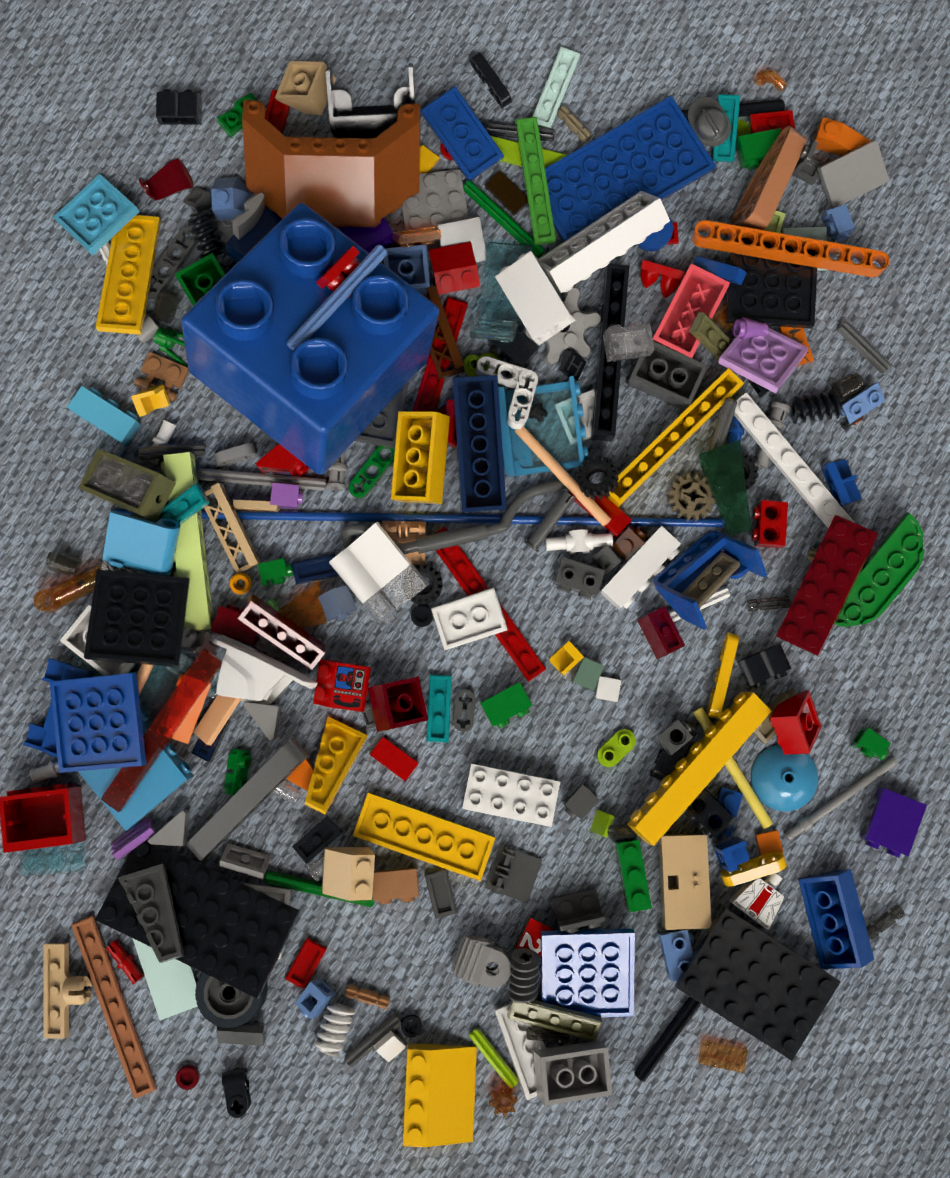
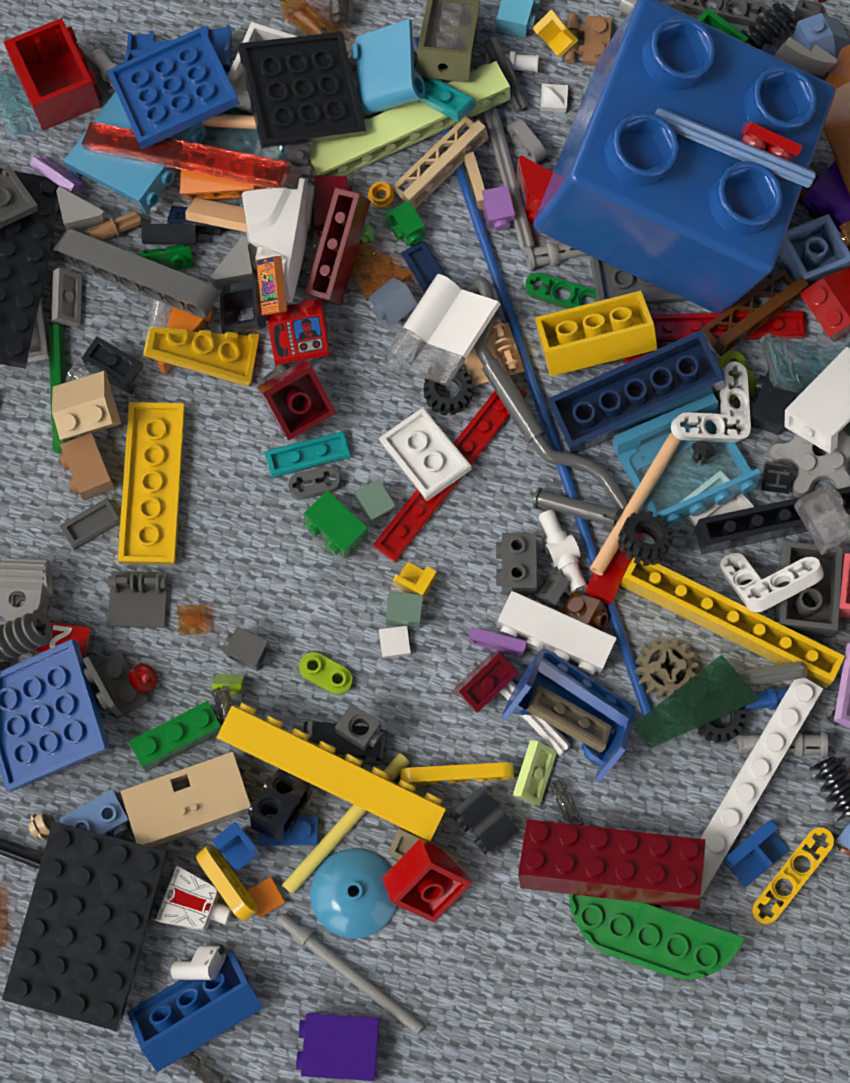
camera: 75 degrees right, 10 degrees down
(195, 804) = (115, 227): none -> medium nougat axle
(203, 420) = (554, 98): none -> white tile
(220, 763) = (169, 234): none -> black slope
(292, 725) = (238, 297): none -> black tile
(303, 695) = (271, 285): none -> tile
(394, 759) = (232, 423): red tile -> none
(421, 616) = (410, 401): black tile -> none
(497, 669) = (374, 501): none -> sand green panel
(511, 795) = (230, 563): white brick -> none
(543, 836) = (192, 620): none -> clear orange plate
(578, 887) = (143, 678): none -> red tile
(634, 613) = (497, 642): none -> medium lavender tile
(659, 411) = (761, 587): none -> white beam
(667, 999) = (40, 825): none -> tan plate
(739, 619) = (535, 773): none -> yellowish green plate
(776, 526) = (670, 782): red brick -> none
(808, 903) = (203, 966): none -> white piece
(869, 461) = (794, 877): none -> yellow beam
(871, 743) = (430, 989): green brick -> none

